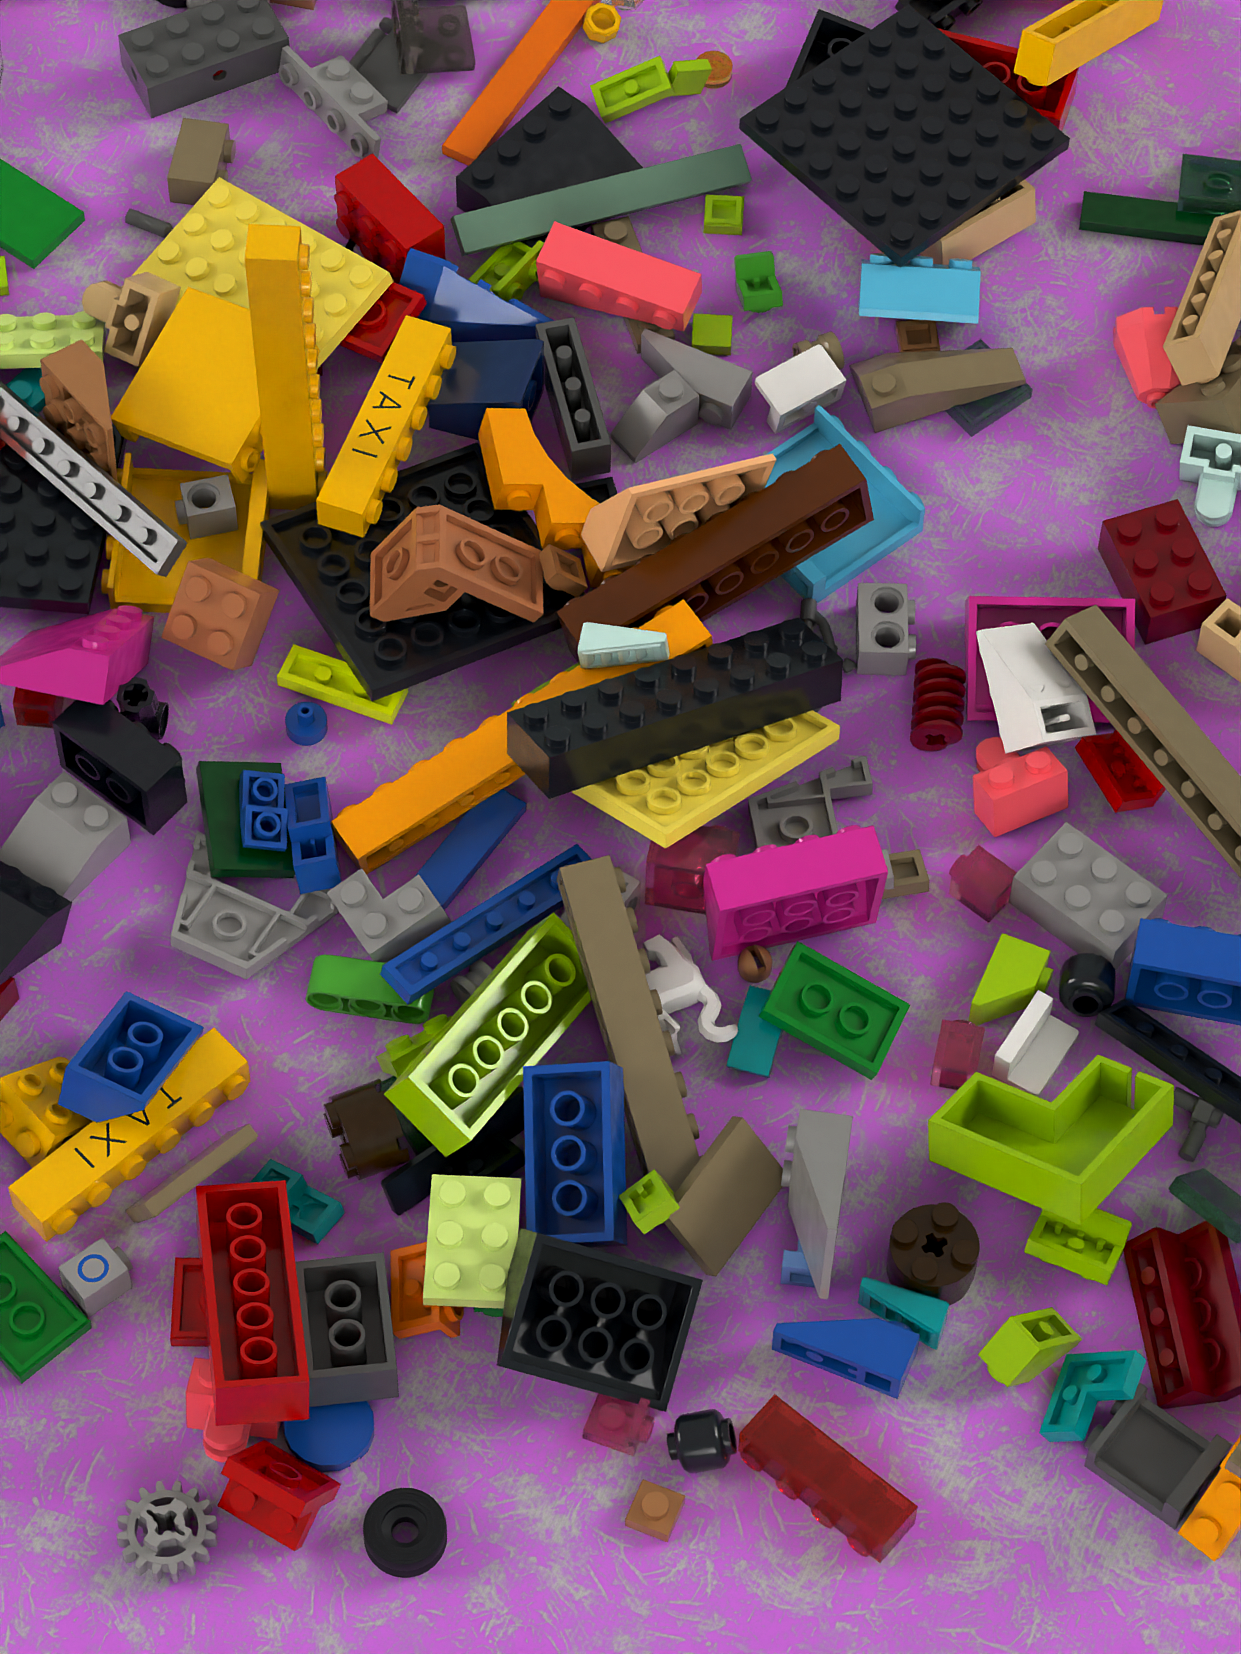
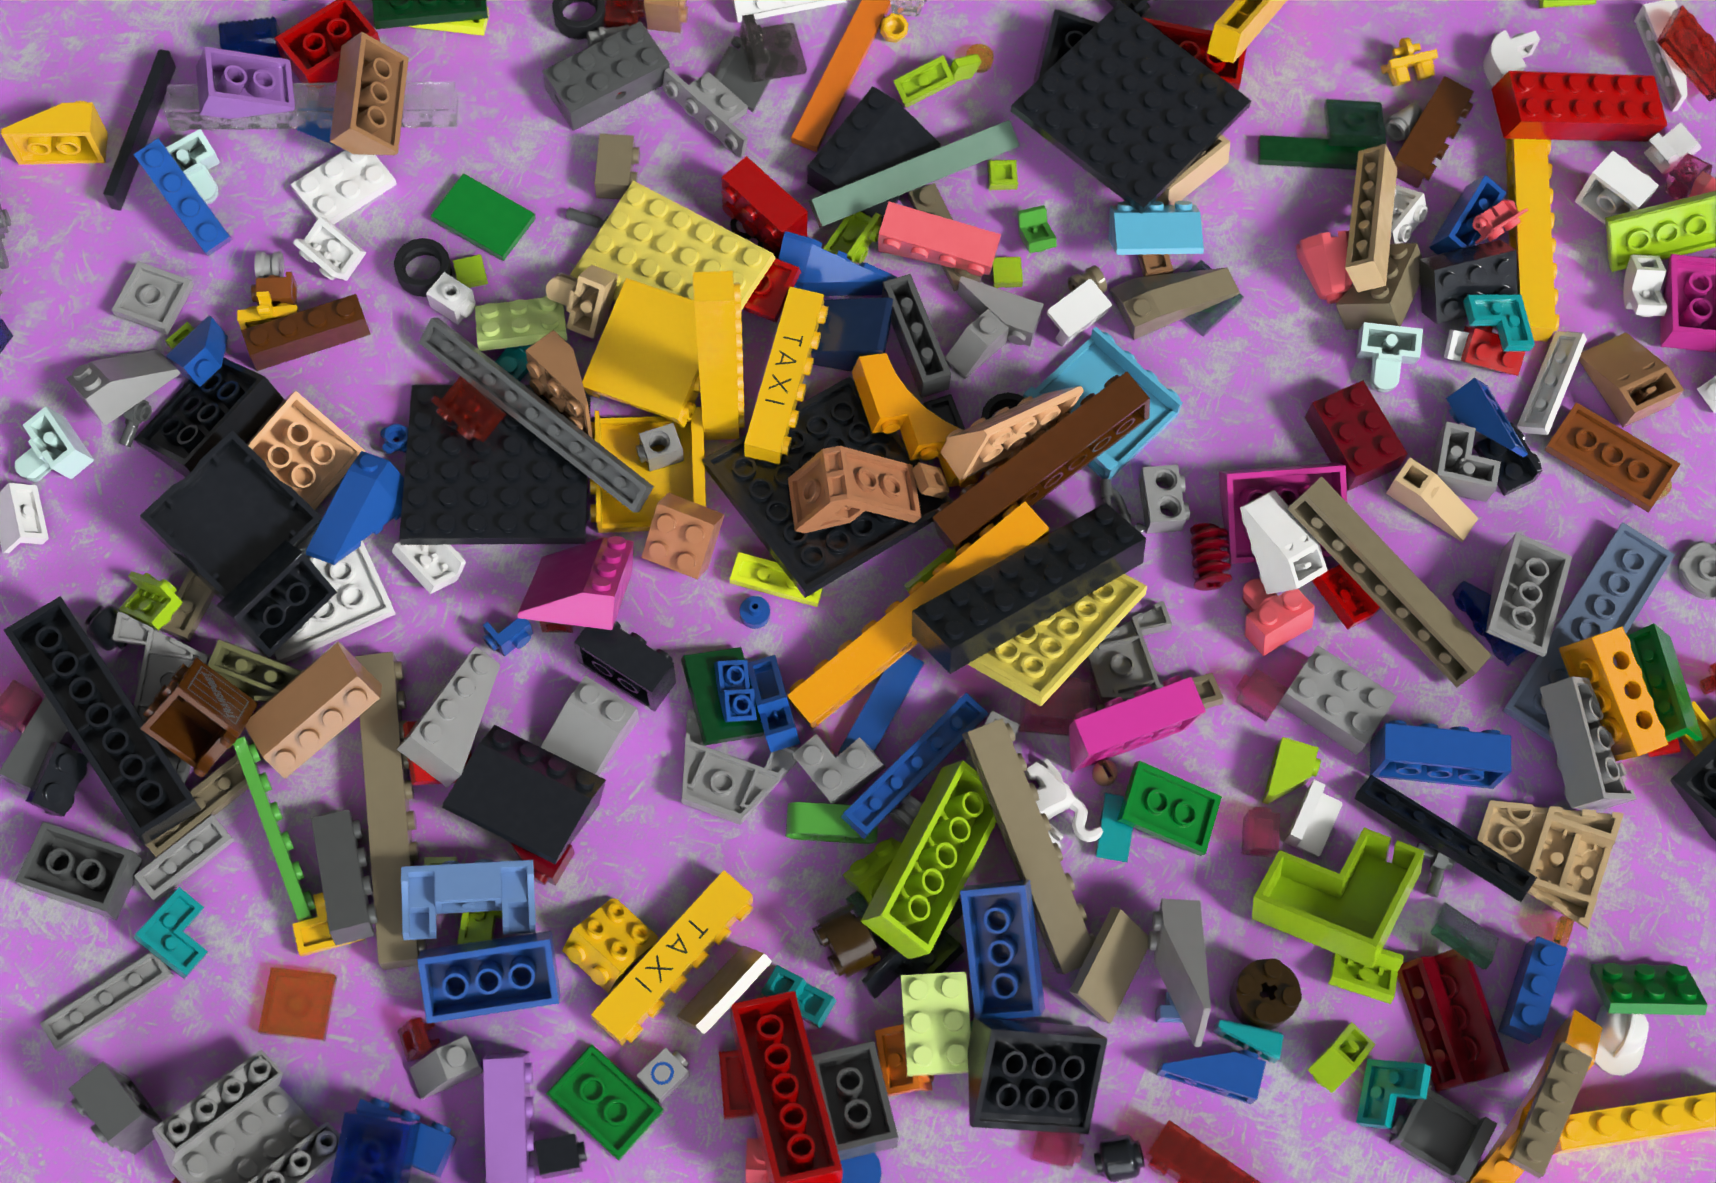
camera: 10 degrees left, 10 degrees up
(126, 1059) = (667, 906): blue slope -> none
(140, 703) = (636, 618): black piece -> none
(617, 646) = (981, 544): light aqua slope -> none
(649, 1201) = (1063, 984): lime bracket -> none
(1087, 984) = (1345, 768): black head -> none

